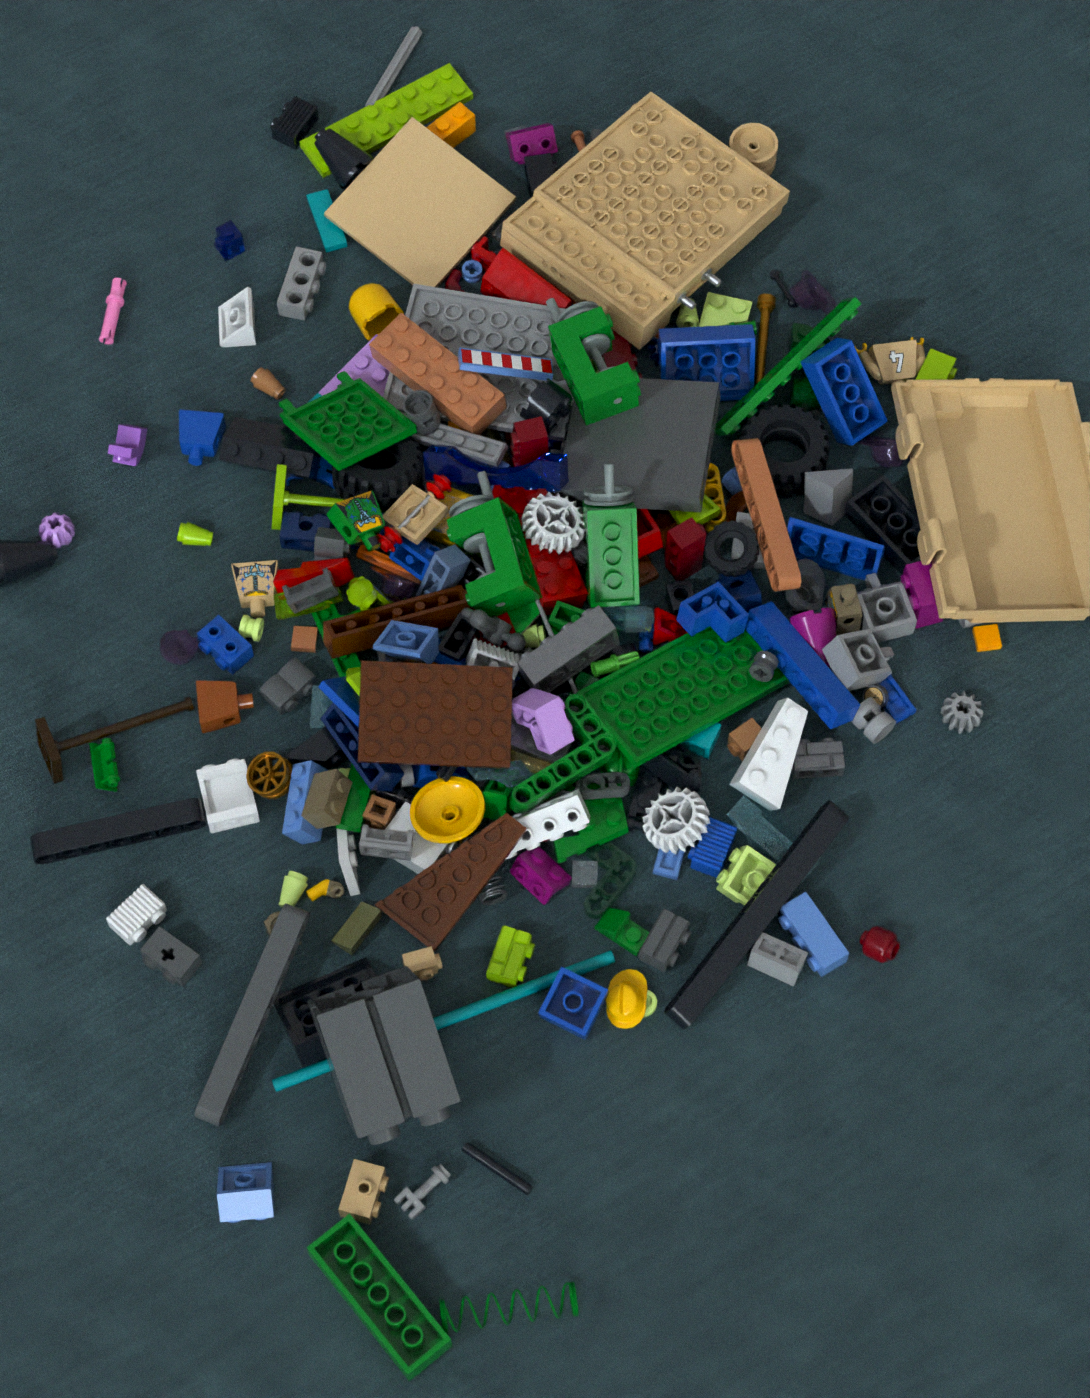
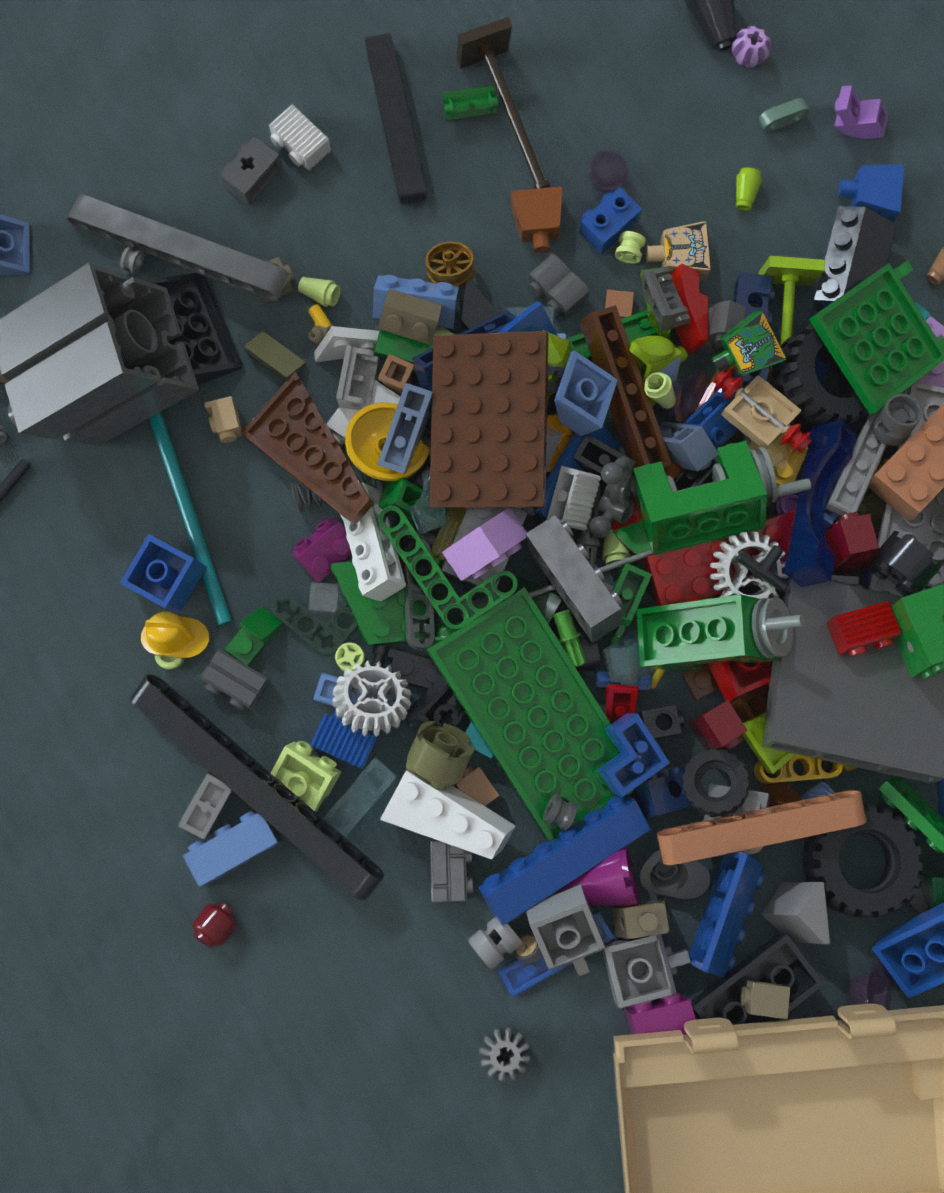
camera: 90 degrees right, 15 degrees up
(123, 505) = (784, 115): none -> sand green beam
(227, 795) = (430, 223): white panel -> none
(261, 1061) = (132, 260): none -> light grey bush
(390, 589) = (660, 389): none -> yellowish green cone
(438, 788) = (406, 428): none -> sand blue slope
(509, 957) = (227, 512): lime brick -> none
(556, 507) = (763, 569): none -> black piece
(602, 435) = (864, 628): none -> red brick
(639, 841) = (347, 653): none -> yellowish green wheel
(722, 758) = (439, 754): none -> olive brick
(899, 511) = (766, 999): none -> dark tan brick
(987, 637) = (604, 1097): light orange tile -> none

